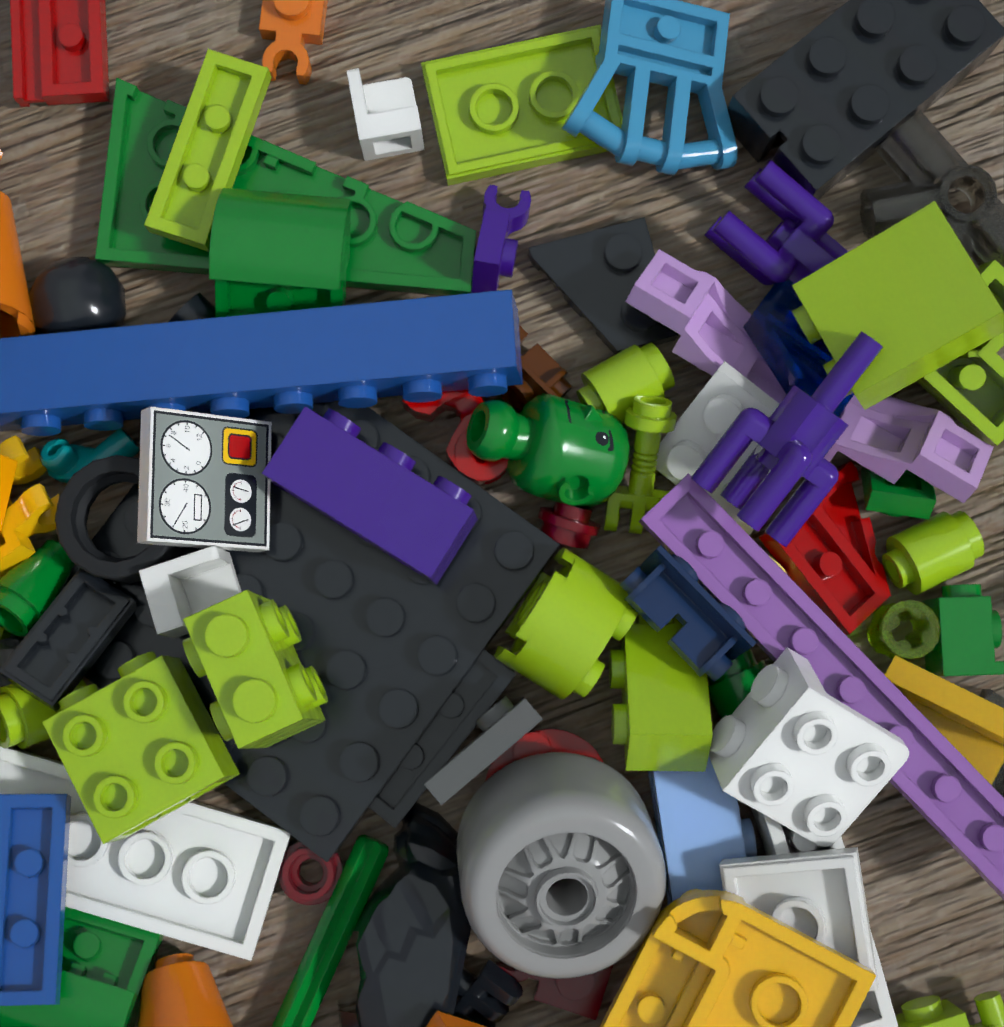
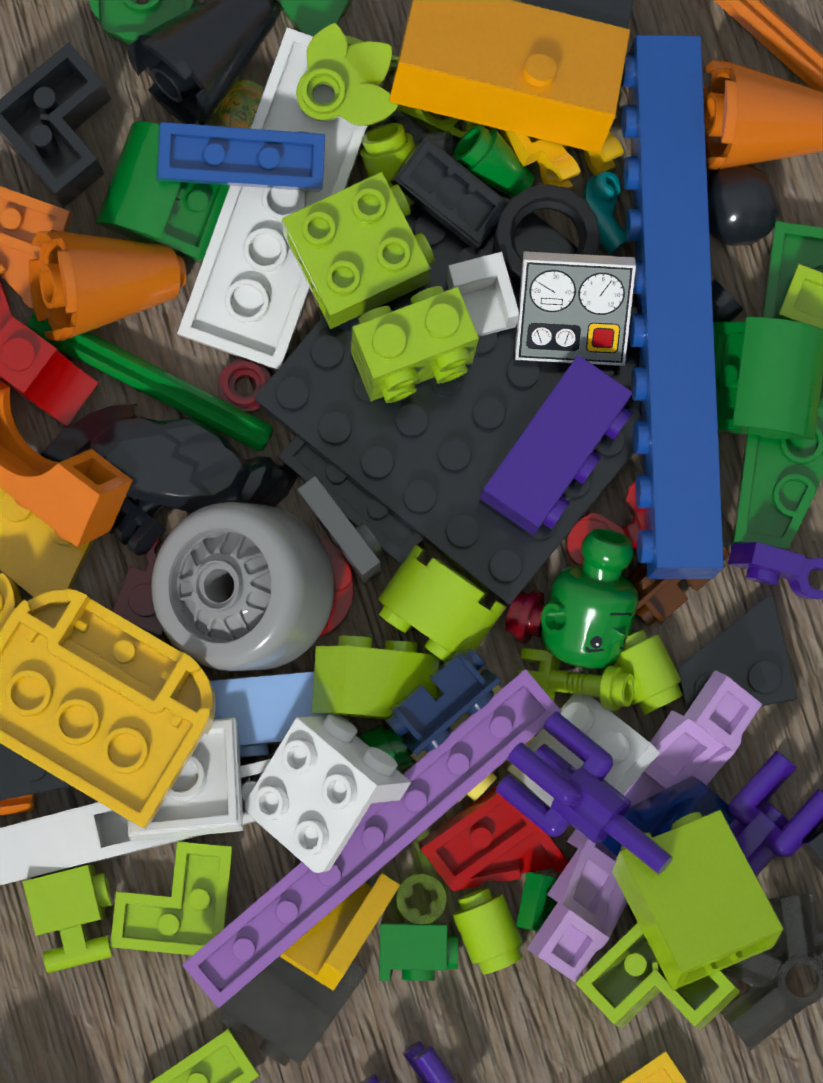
camera: 95 degrees right, 0 degrees up
(951, 915) = (185, 918): none -> lime plate

